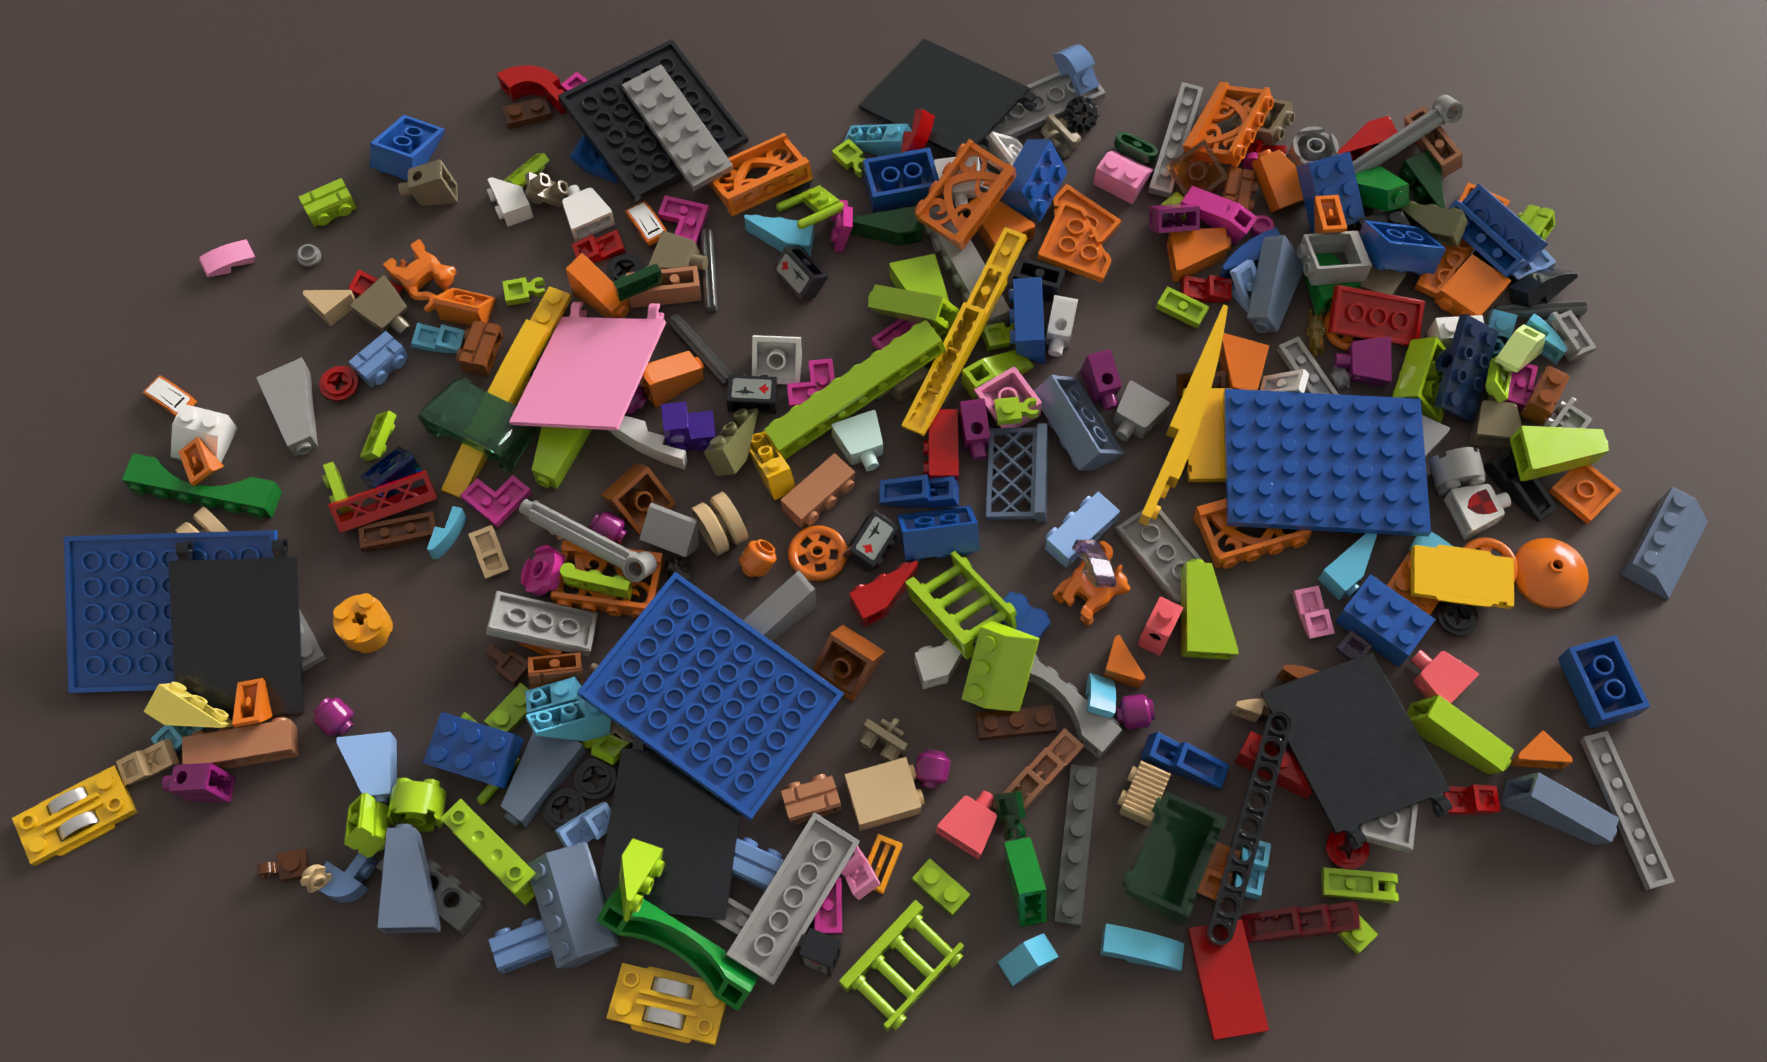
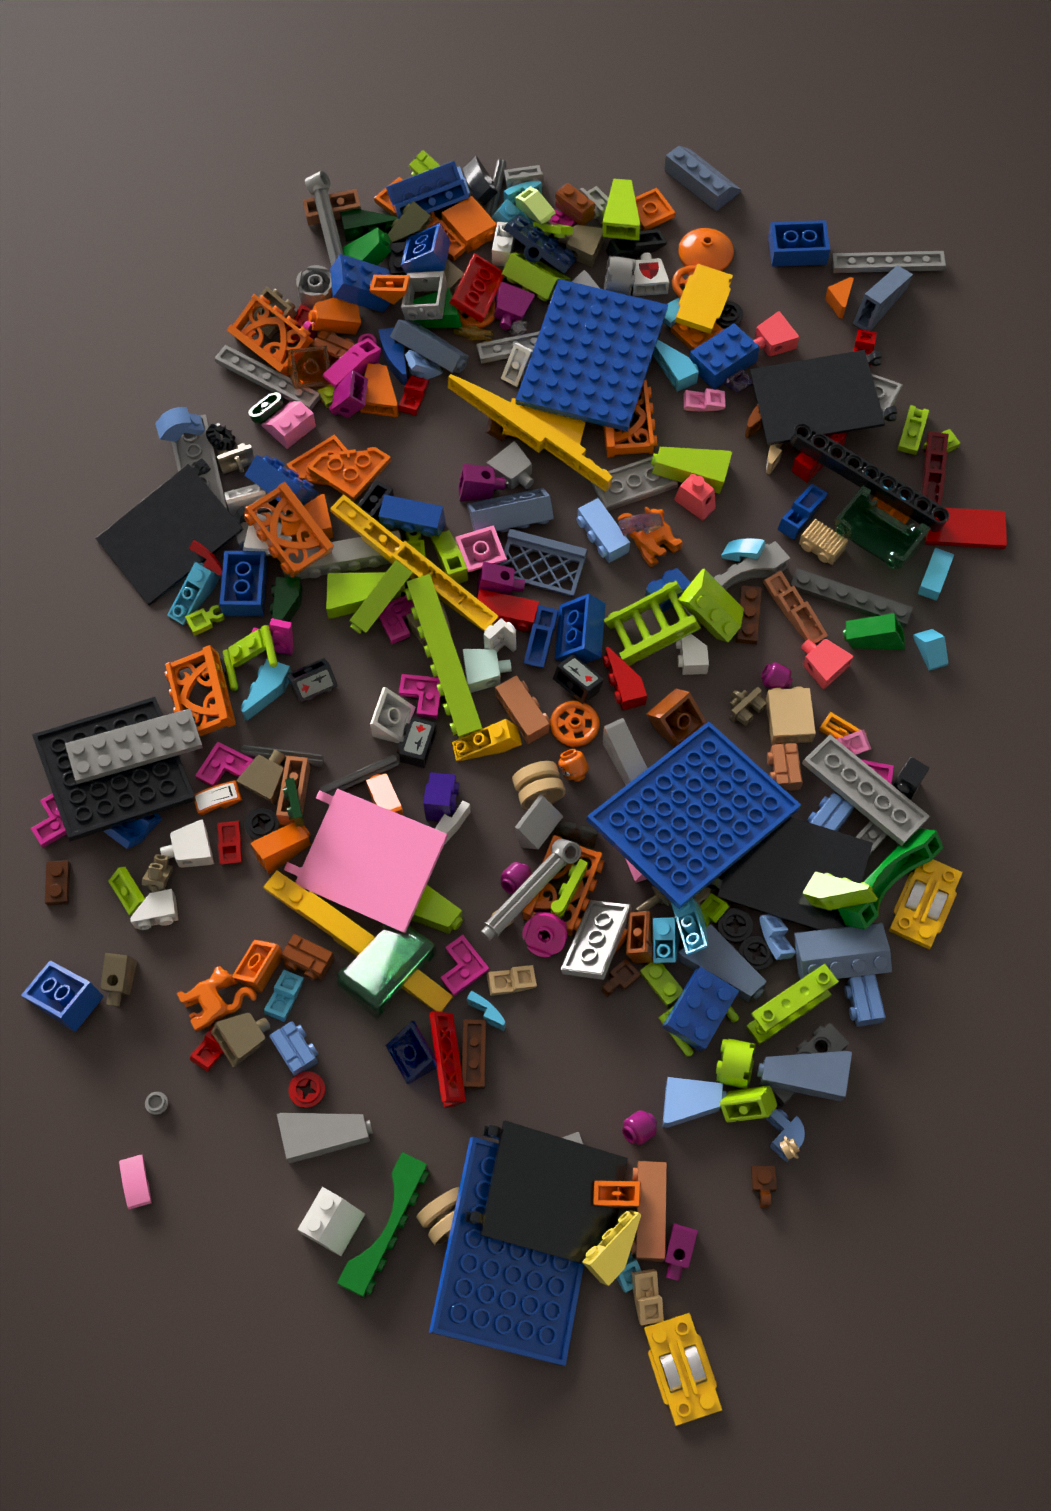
camera: 75 degrees left, 0 degrees up
(168, 395) = (276, 1250): white slope -> none
(199, 461) = (363, 1220): orange slope -> none
(328, 202) = (103, 1076): lime brick -> none
(330, 304) = (219, 1088): tan slope -> none
(334, 481) = (409, 1103): lime plate -> none
(366, 611) = (565, 1080): light orange brick -> none
(378, 435) = (373, 1059): lime plate -> none
(519, 290) = (256, 916): lime plate -> none
(531, 80) = (29, 864): red arch -> none
(633, 493) = (492, 849): dark orange slope -> none
(732, 445) = (460, 763): olive slope -> none
(874, 959) = (916, 748): lime fence -> none
(898, 441) = (499, 635): none -> white bracket
(941, 887) = (867, 694): lime plate -> none
(1010, 810) = (821, 629): dark green plate -> none
(1011, 410) = (496, 546): lime plate -> none
(1060, 324) = (422, 492): white torso -> none
(1122, 665) = (719, 531): orange slope -> none
(1135, 711) = (760, 528): magenta head -> none
(1182, 307) = (426, 414): lime plate -> none
(1242, 362) = (496, 382): orange slope -> none
(1356, 857) = (893, 433): red gear -> none
(1369, 136) = (313, 245): red slope -> none
(1459, 735) = (819, 336): lime slope -> none

